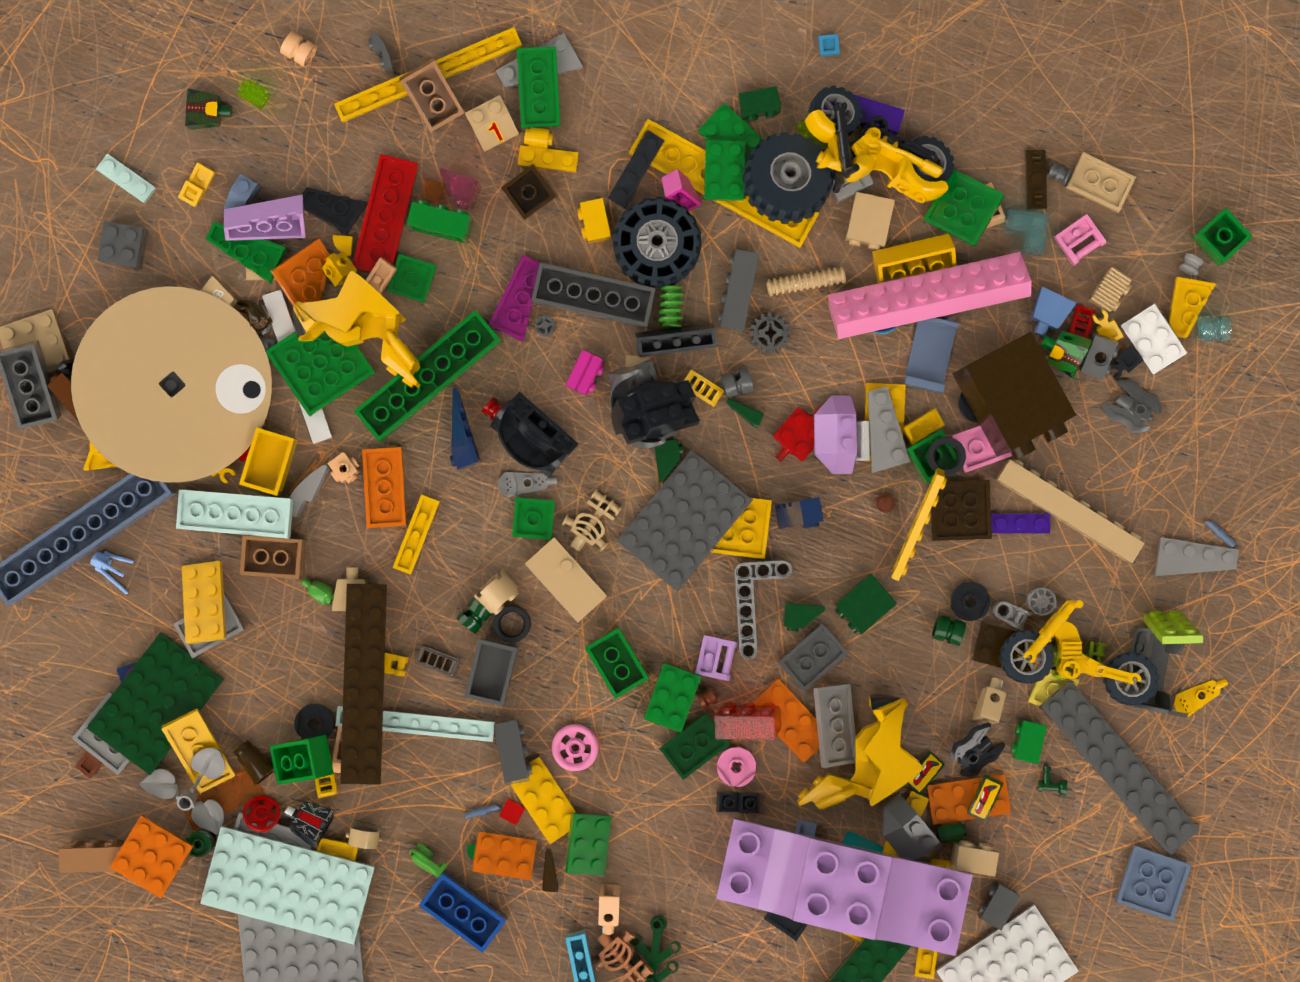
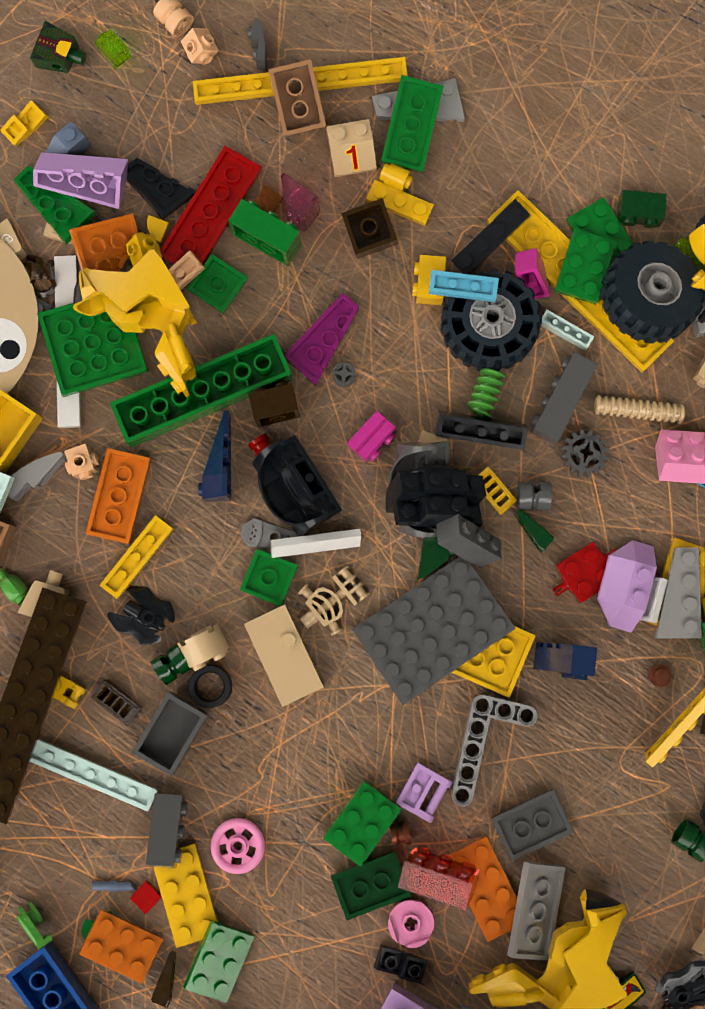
camera: 20 degrees right, 5 degrees down
(331, 70) = (199, 46): none -> light nougat brick
(439, 583) = (143, 618): none -> black piece
(493, 370) = (274, 404): none -> dark brown brick
(564, 477) = (315, 543): none -> white tile
(593, 295) = (405, 357): dark grey brick -> none
(617, 662) = (312, 765): green brick -> none
(624, 222) = (463, 286): none -> medium azure plate
(692, 438) = (468, 541): none -> dark grey brick
(724, 230) = (566, 330): none -> light aqua piece
(800, 615) = (530, 773): dark green slope -> none
(864, 604) = (606, 782): dark green brick -> none

